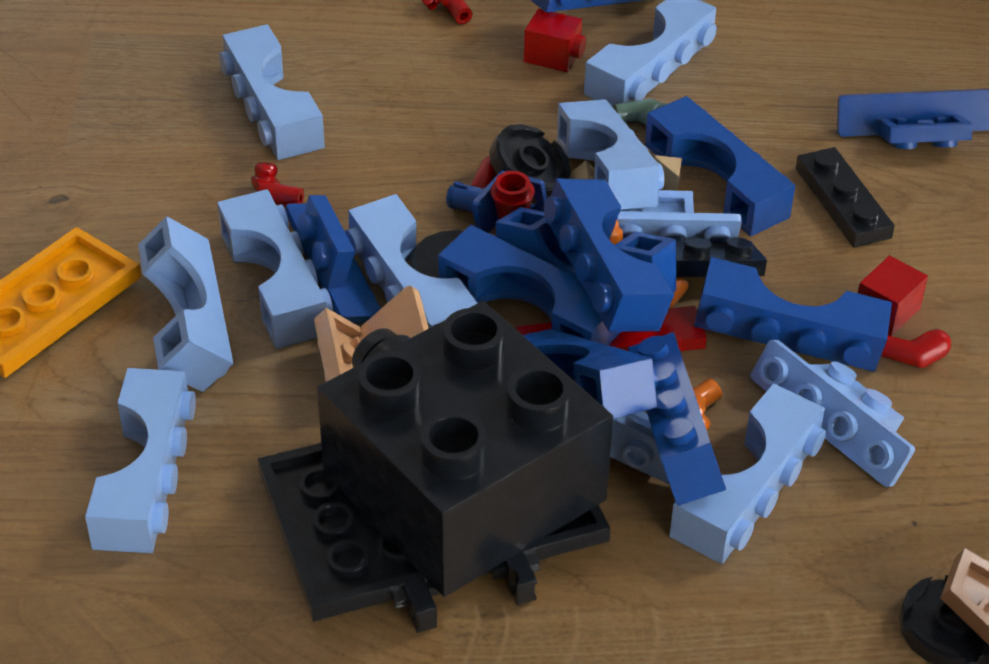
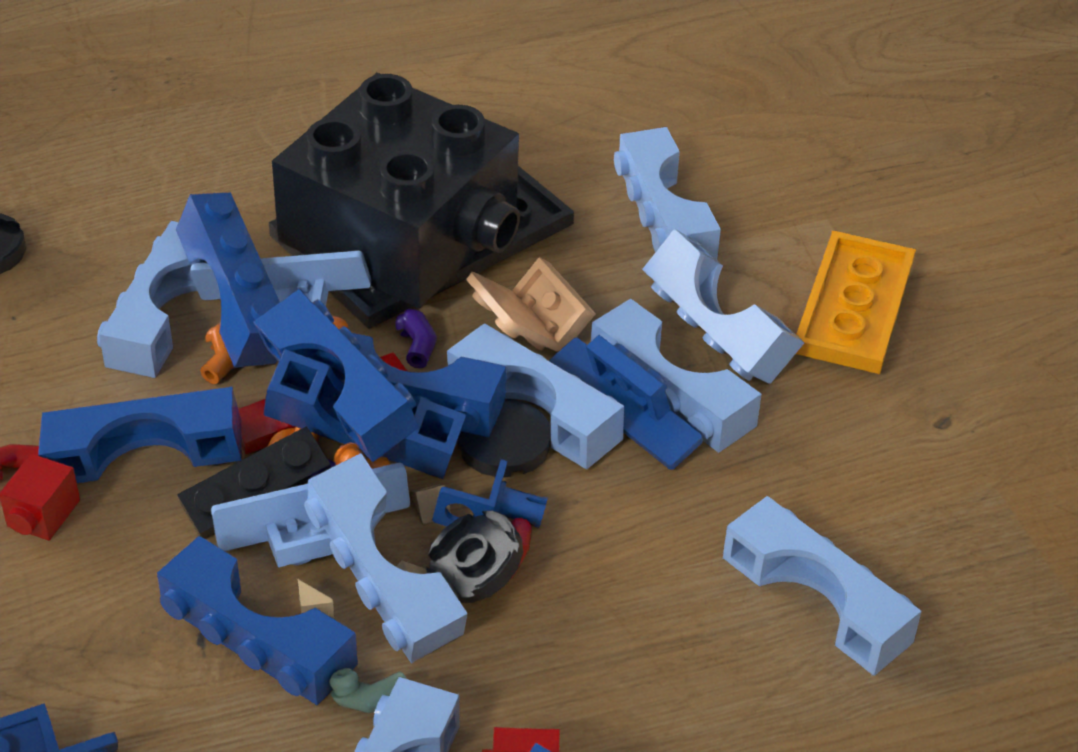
camera: 160 degrees right, 0 degrees up
(266, 179) = (736, 471): red arm -> none
(511, 192) = (469, 473): red cone -> none
(612, 376) = (286, 236): blue arch -> none
(844, 197) = (101, 638): black plate -> none
(854, 417) = (75, 377): light blue bracket -> none

